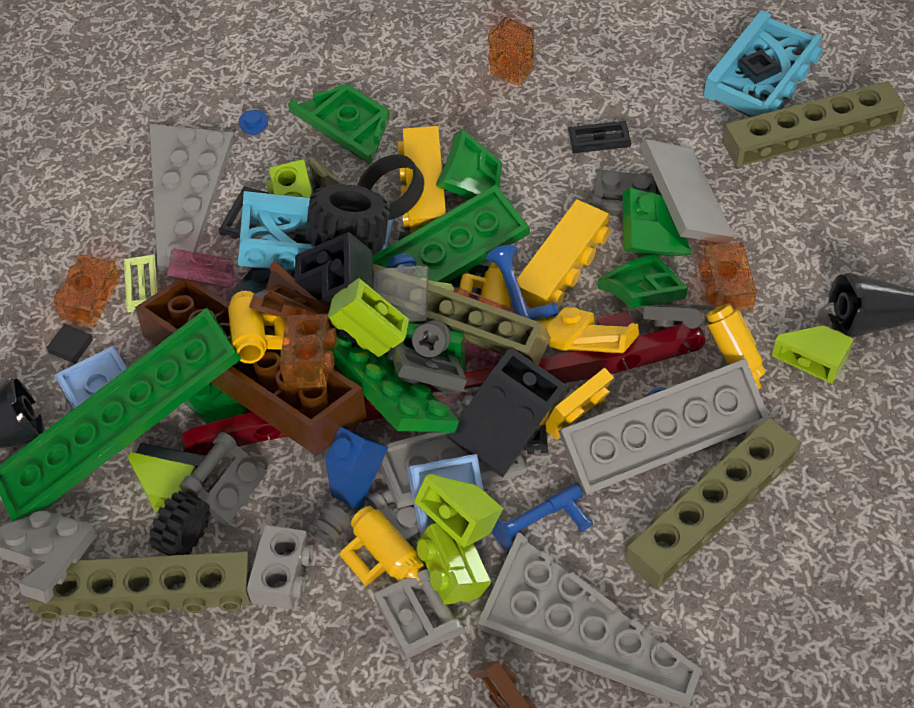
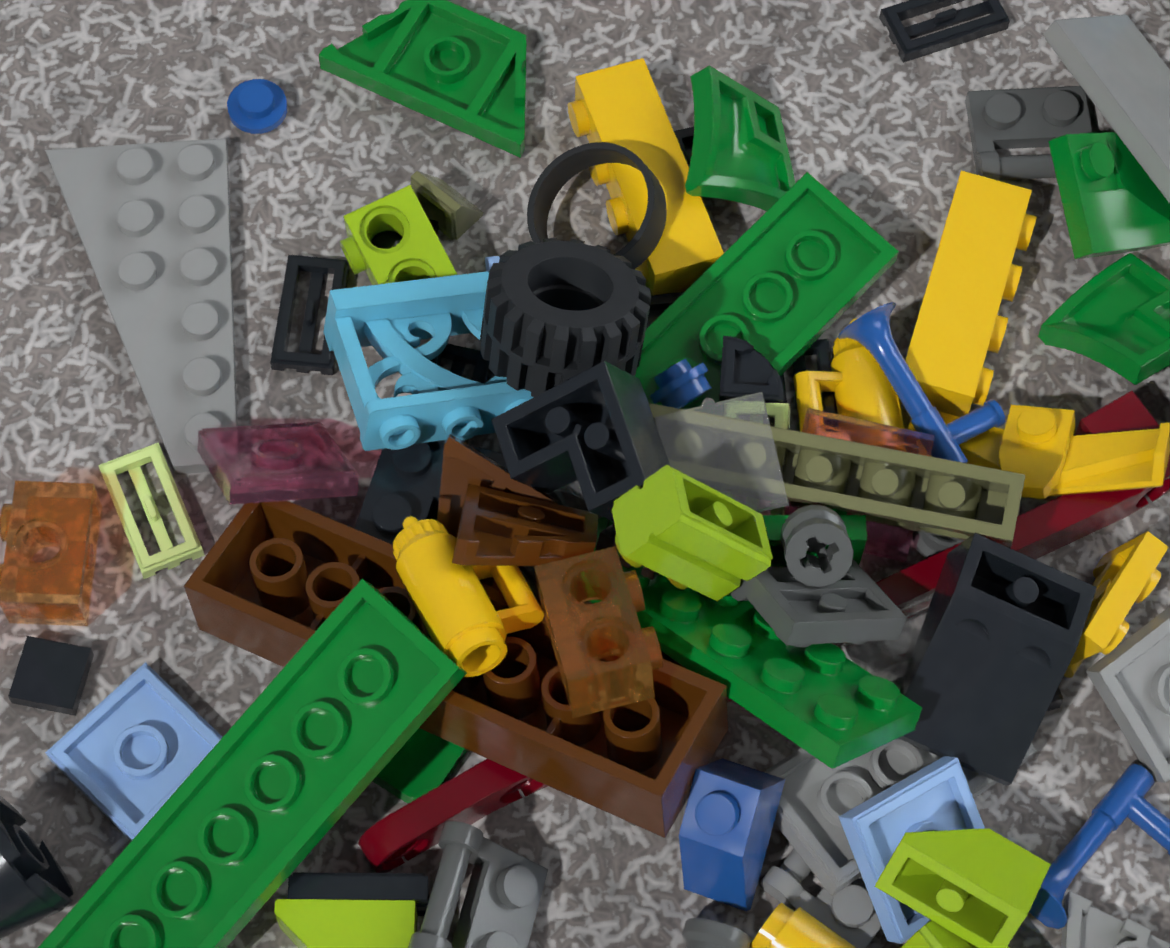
camera: 20 degrees left, 10 degrees up
(438, 267) = (747, 372): none -> black tile

